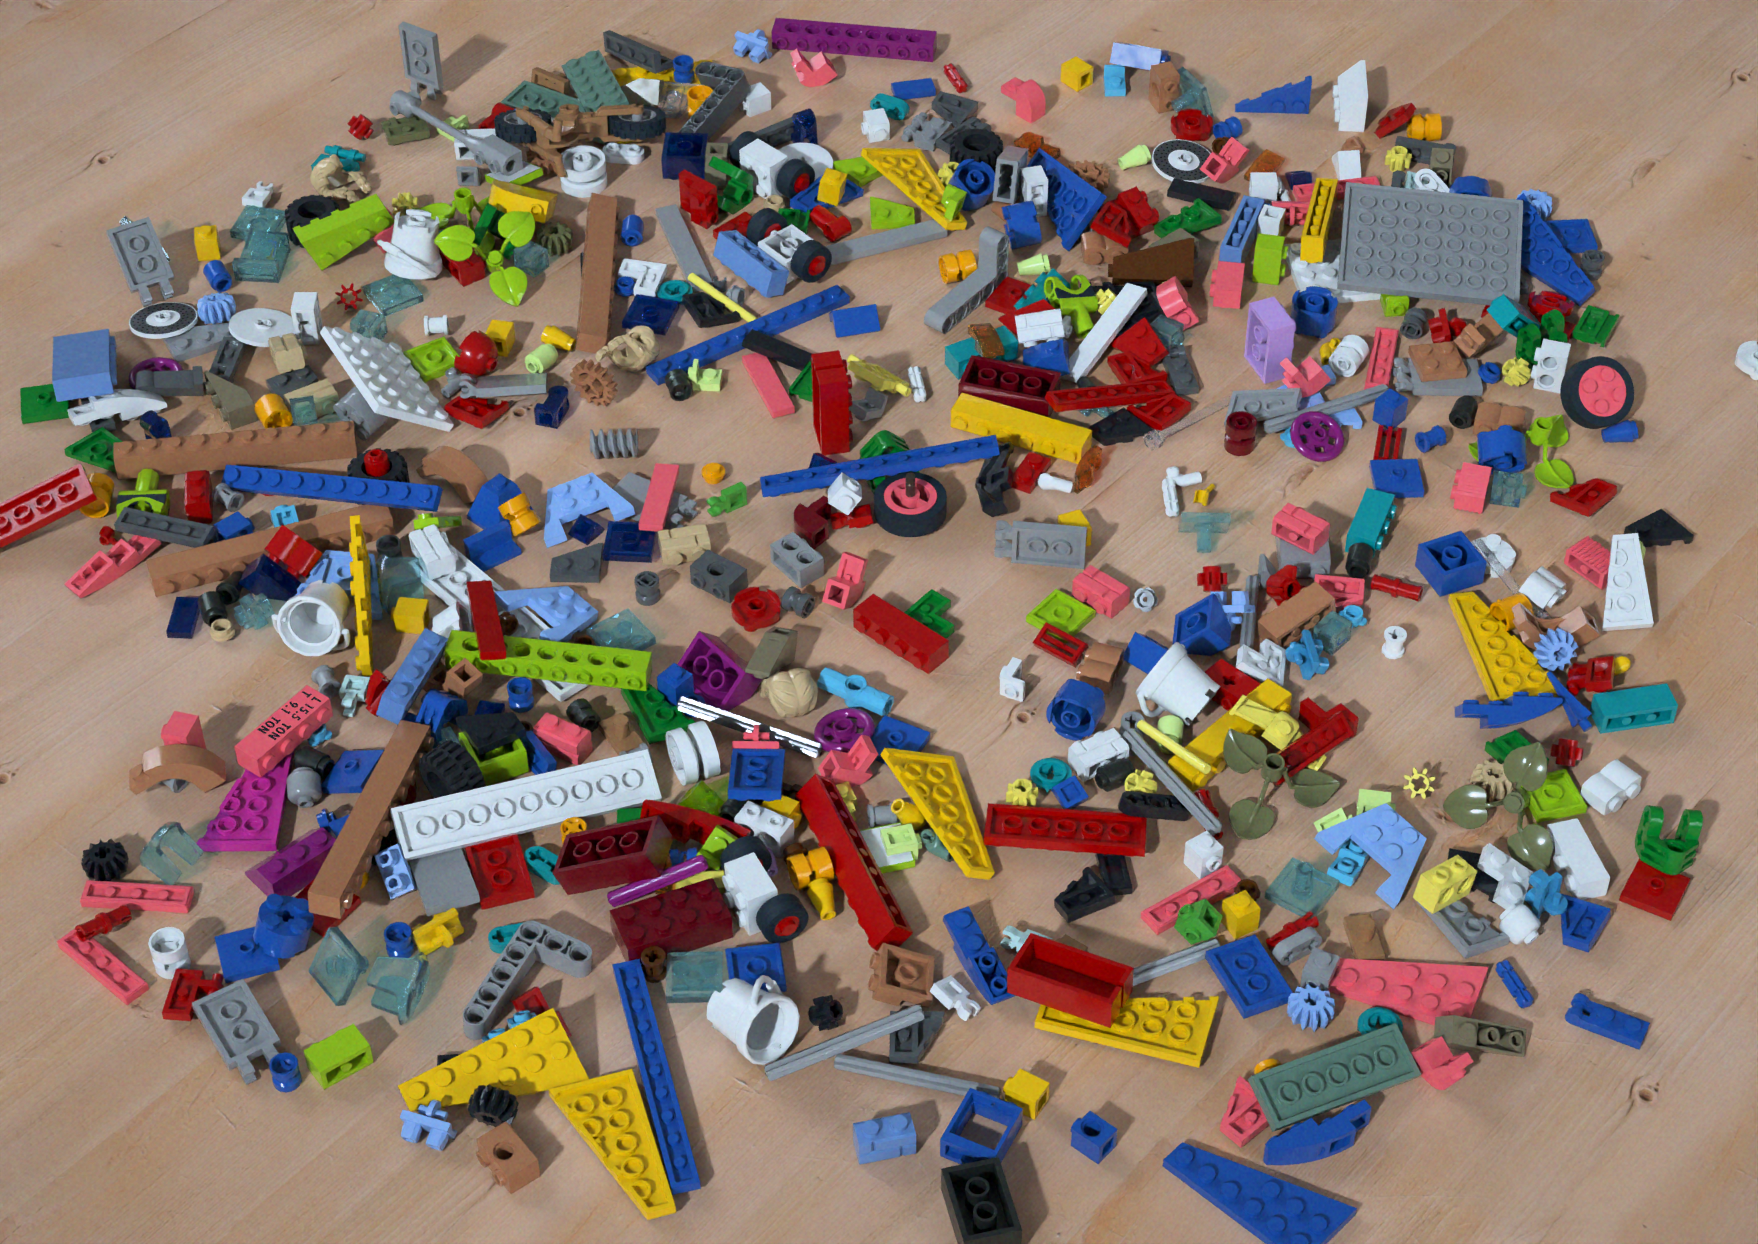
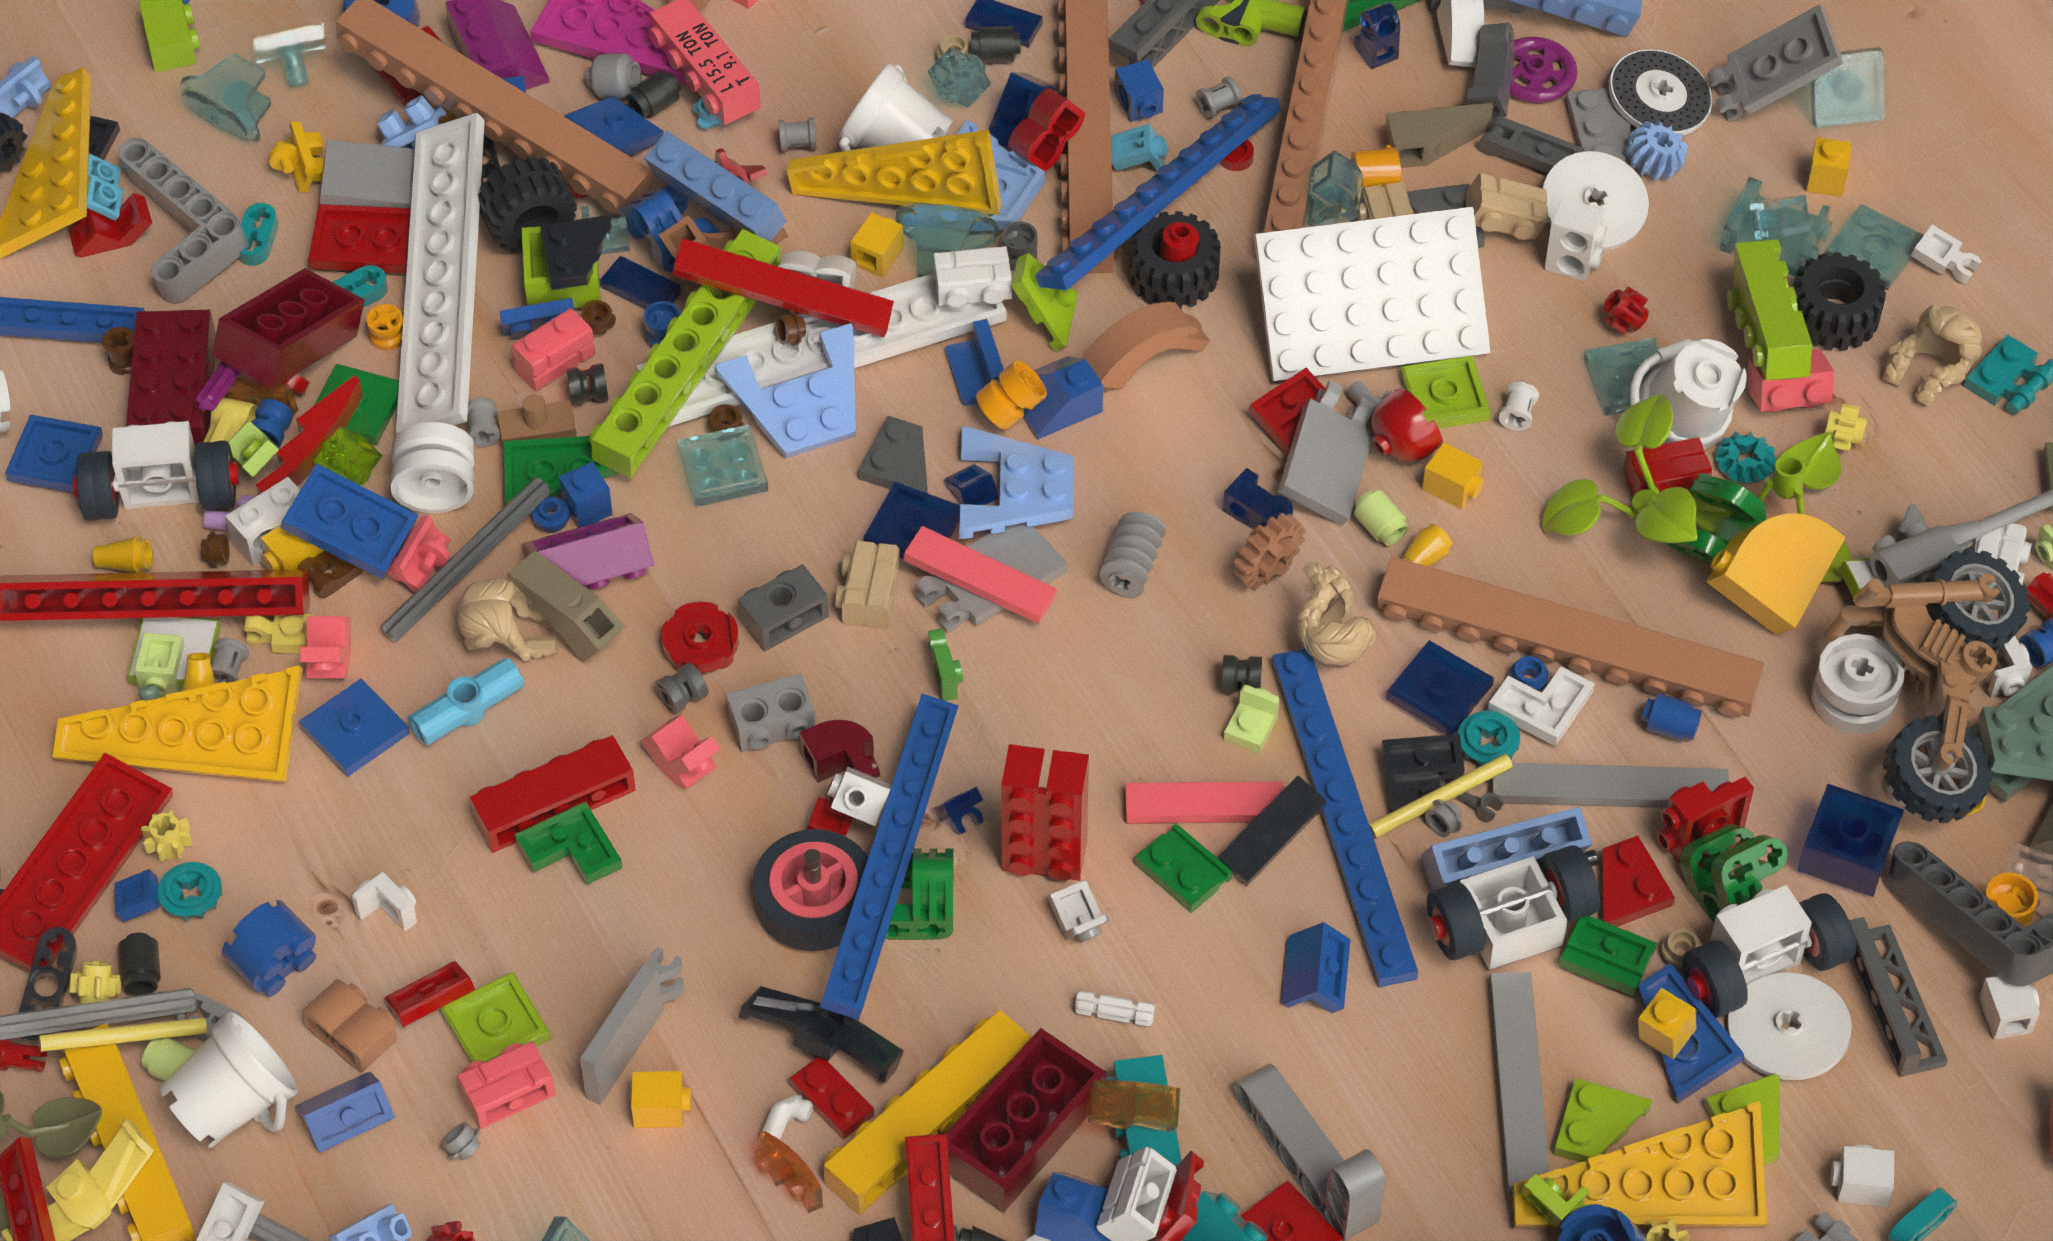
camera: 110 degrees right, 10 degrees up
(199, 496) = (1220, 57): red brick -> none
(217, 275) = (1740, 166): blue brick -> none
(230, 588) = (1028, 63): pearl dark grey cone -> none
(324, 818) = (548, 83): blue plate -> none
(352, 690) = (769, 154): light aqua plate -> none
(369, 324) = (1542, 322): clear light blue brick -> none
(399, 940) = (310, 111): blue wheel -> none
(531, 258) = (1645, 564): clear light blue brick -> none
(555, 238) = (1686, 606): olive gear -> none
(647, 588) = (800, 517): dark grey wheel -> none
(693, 976) = (80, 388): clear light blue plate -> none
(712, 175) = (1811, 874): dark tan slope -> none
(713, 473) = (1022, 670): light orange plate -> none
(804, 127) = (1873, 1045): clear blue leg -> none
(807, 868) = (174, 544): light orange wheel -> none
(832, 226) = (1582, 1015): red piece -> none
(843, 729) = (405, 670): magenta plate -> none
(878, 376) = (1135, 941): light yellow plate -> none
(957, 266) = (1395, 1151): light orange wheel -> none
(1095, 752) = (187, 952): white brick -> none
(1203, 627) = (350, 1186): blue slope -> none
(1232, 682) = (197, 1181): red brick -> none

